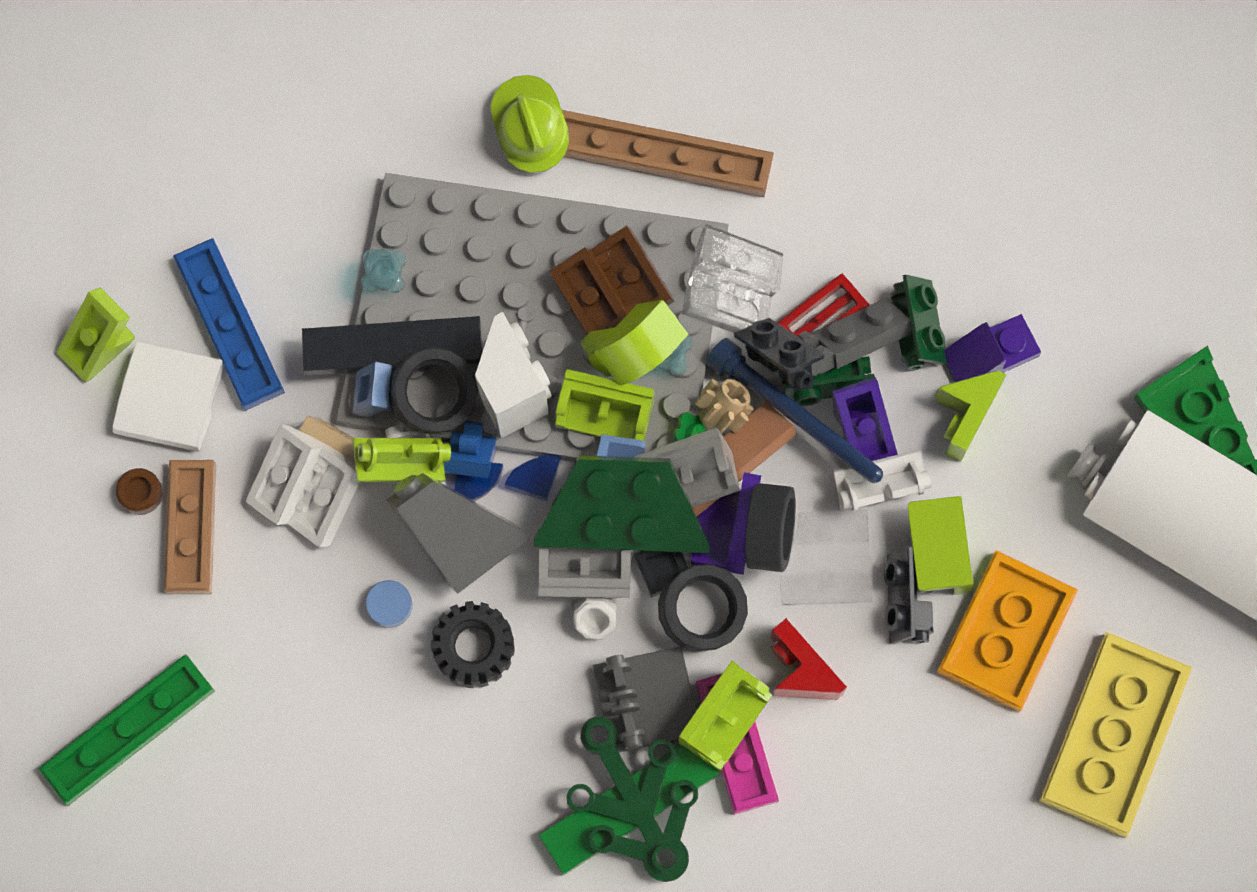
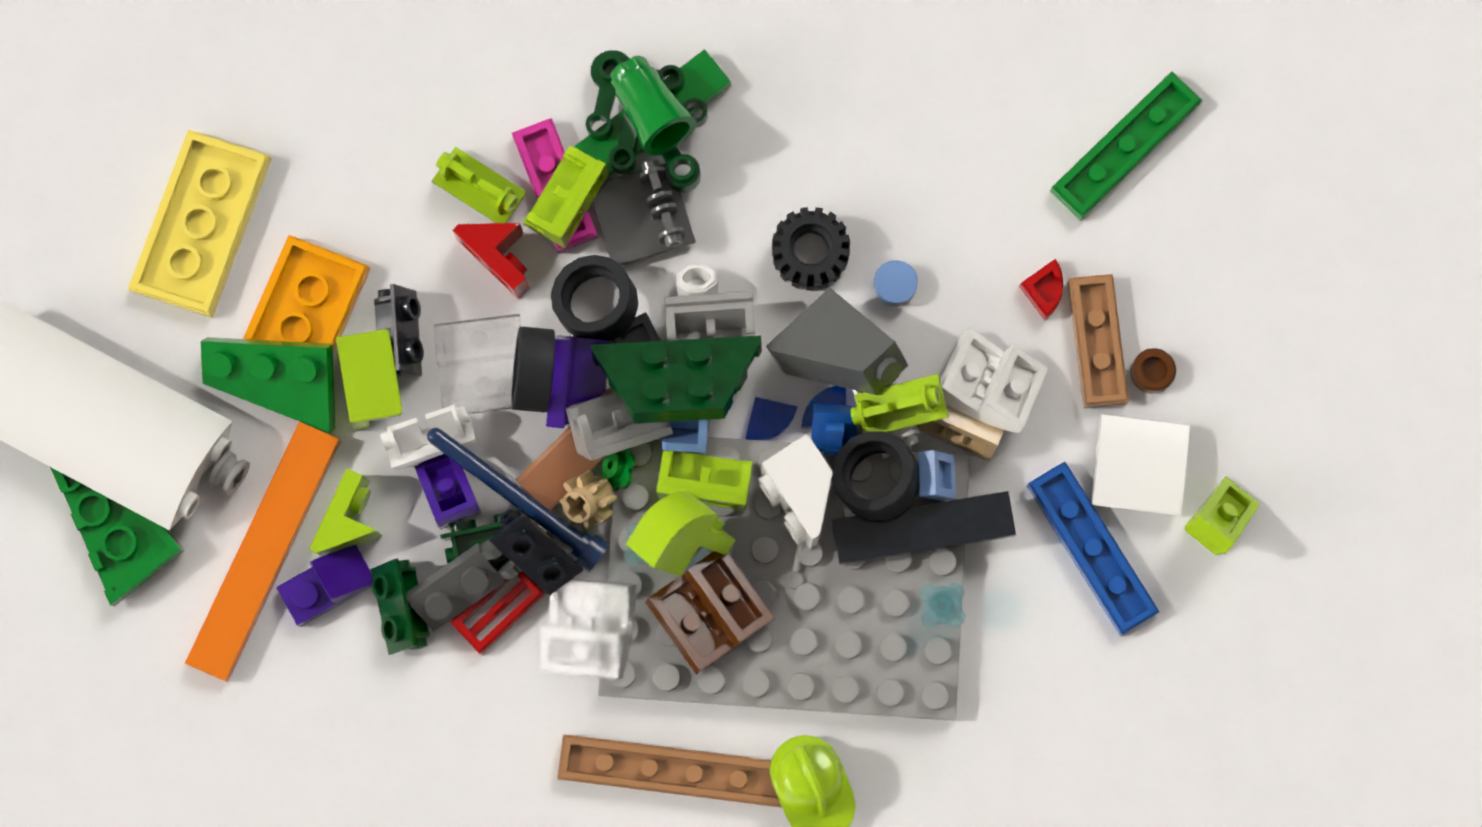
camera: 175 degrees right, 5 degrees up
(235, 585) = (1044, 288): none -> red tile
(626, 801) = (651, 106): none -> green plant
(817, 745) = (477, 185): none -> lime hinge
(1038, 560) = (276, 375): none -> green wing
(1052, 392) = (263, 552): none -> orange tile

